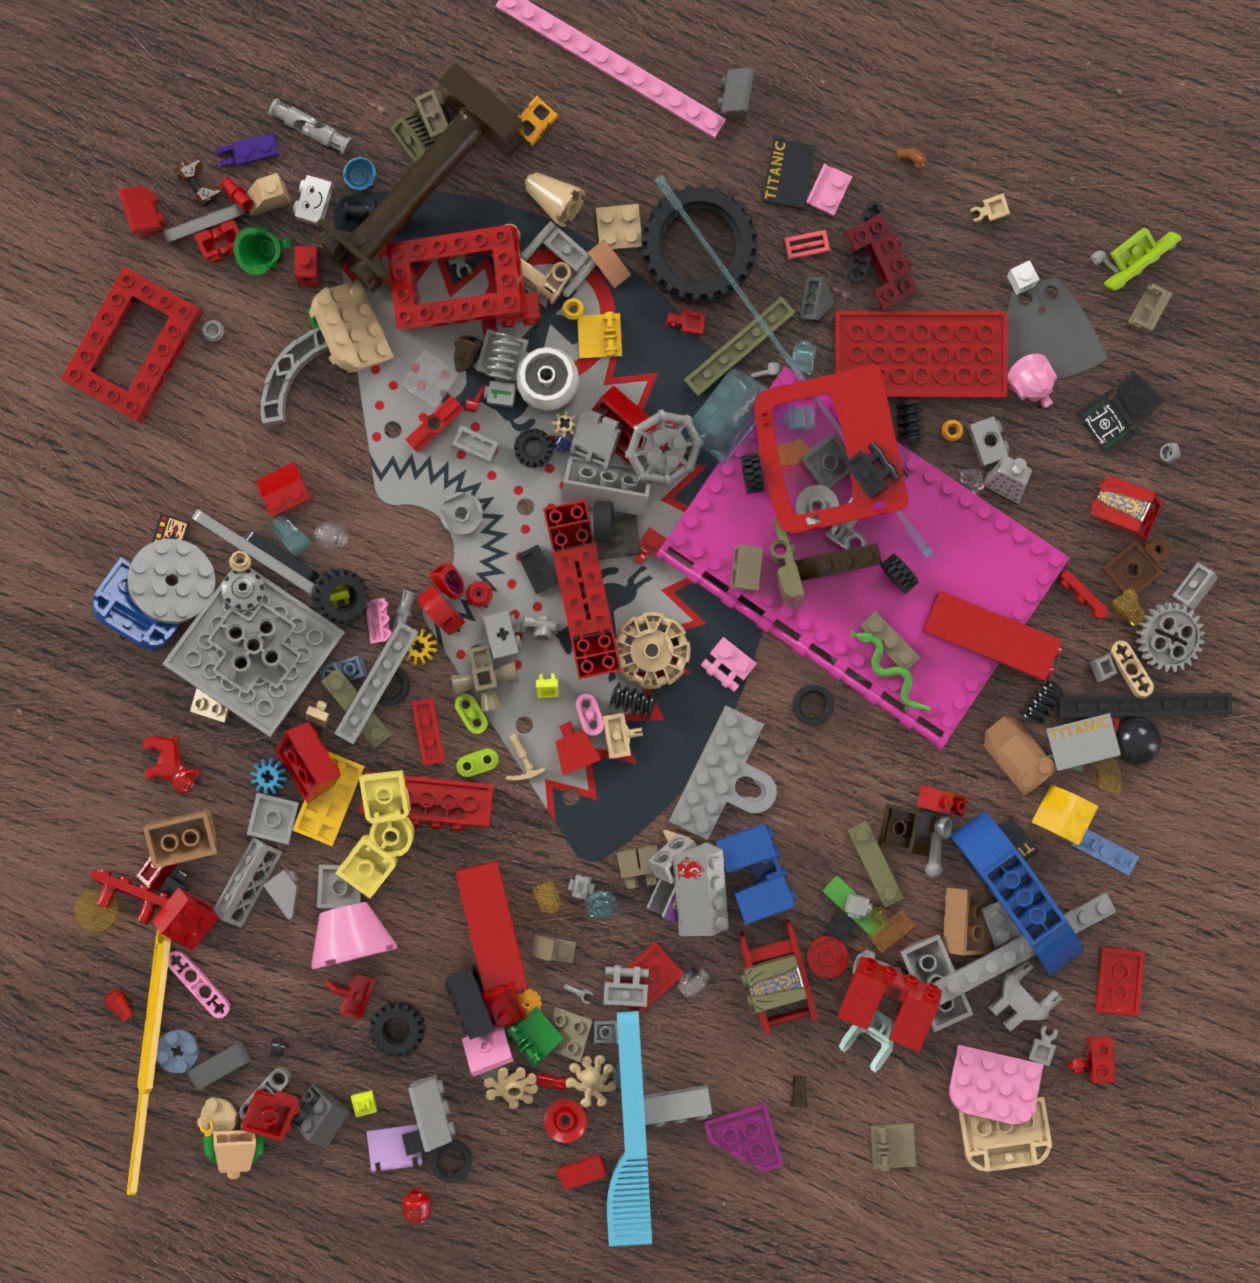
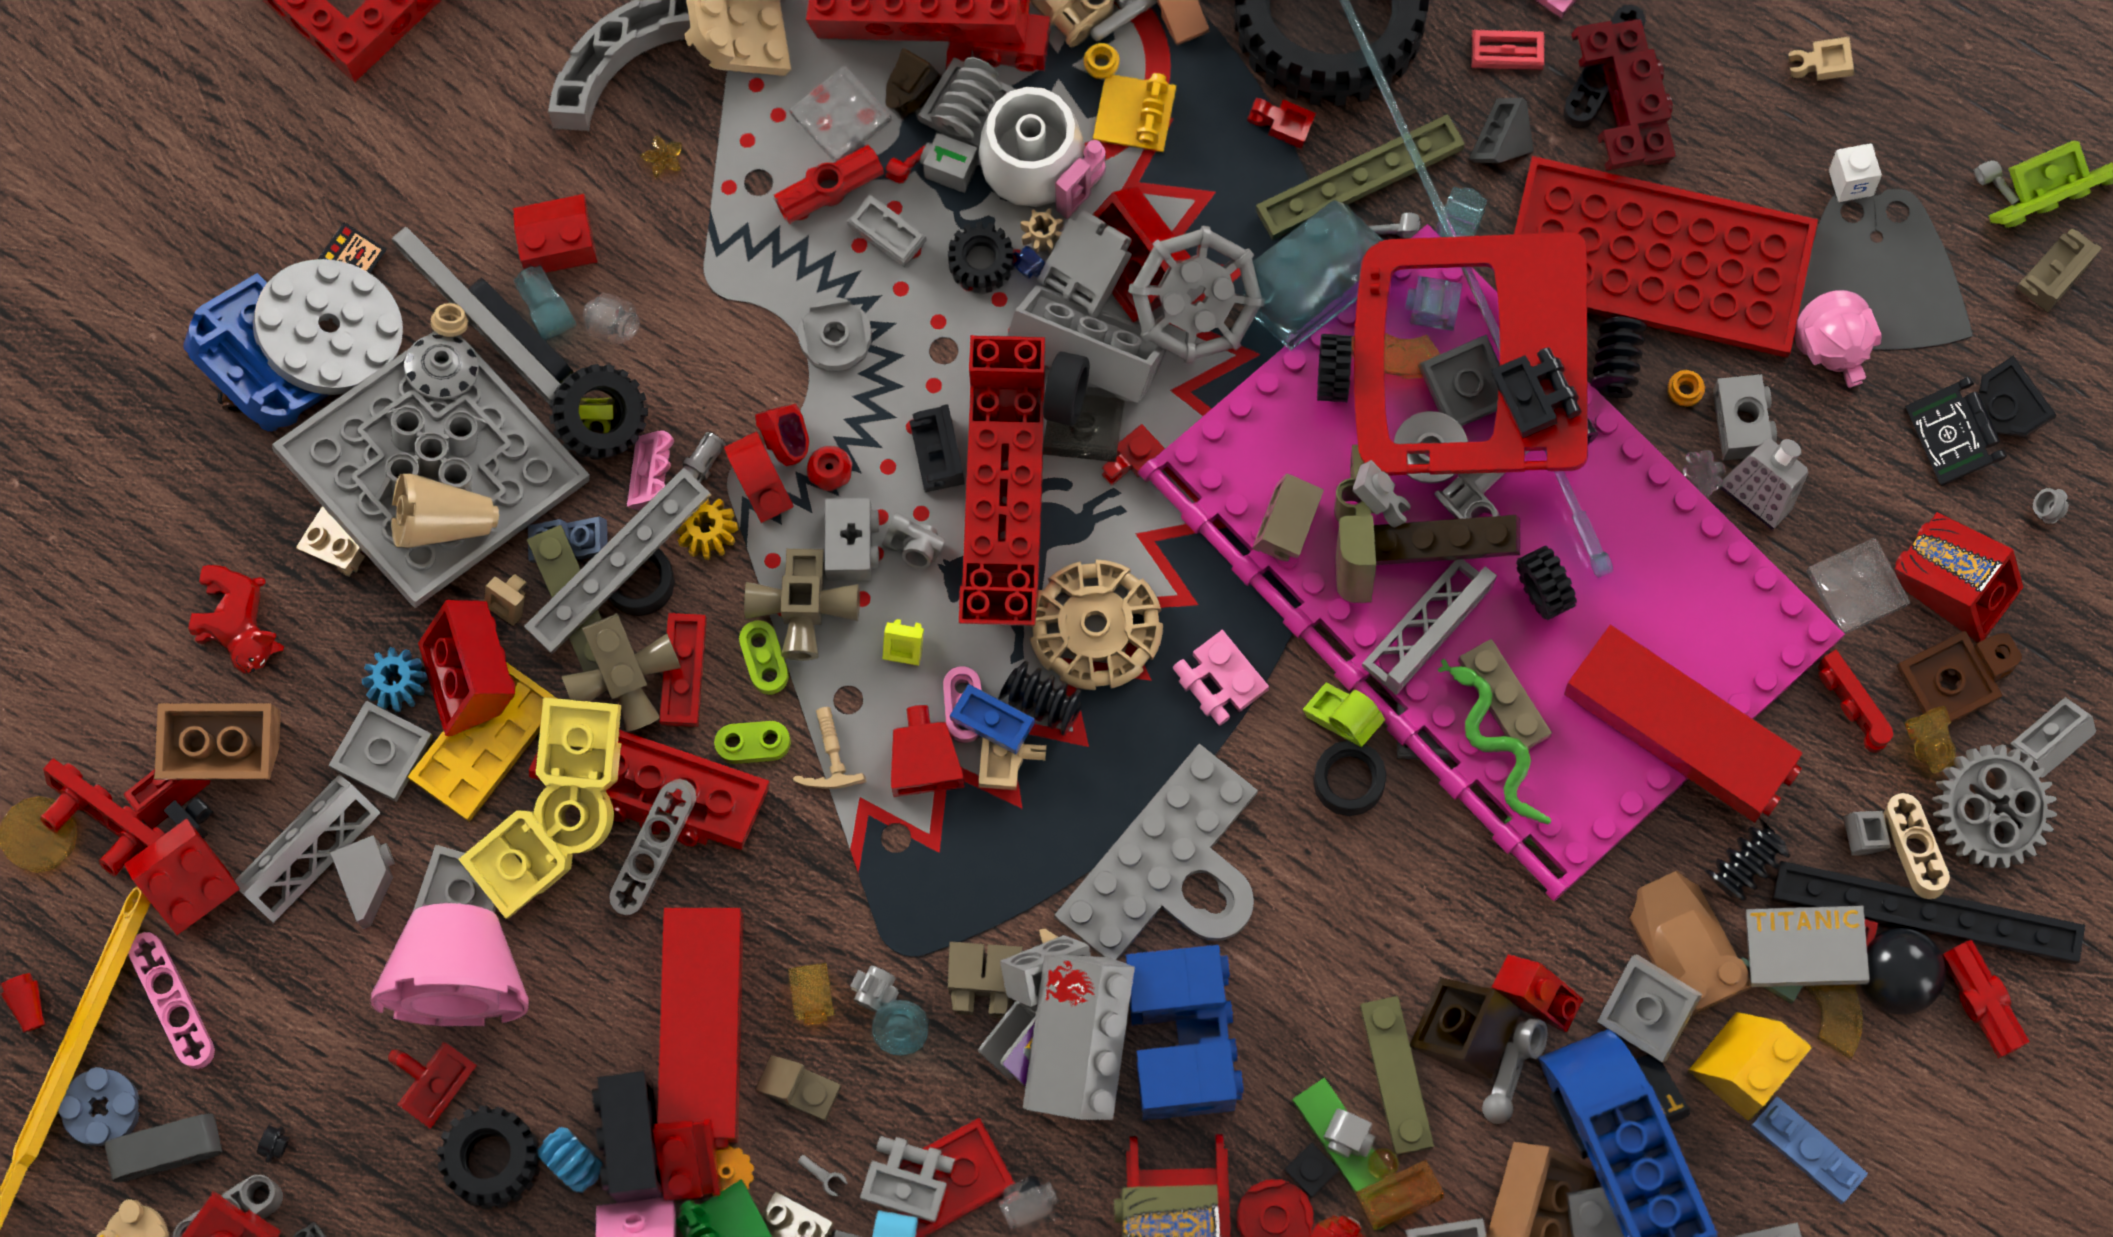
camera: 10 degrees right, 15 degrees down
(269, 683) = (438, 512): none -> tan cone
(333, 427) = (663, 156): none -> clear yellow plant
(395, 745) = (621, 671): none -> dark tan brick
(438, 839) = (655, 848): none -> light grey beam
(442, 1020) = (570, 1159): none -> dark azure gear
(580, 390) = (1076, 182): none -> bright pink plate
(608, 722) = (992, 719): none -> blue plate
(793, 545) = (1376, 491): none -> light grey plate
(802, 671) = (1348, 715): none -> lime plate
(845, 615) = (1440, 628): none -> light grey fence
(1004, 797) = (1649, 1008): none -> light grey plate
(1071, 526) = (1858, 586): none -> clear plate
(1184, 746) = (1985, 999): none -> red piece

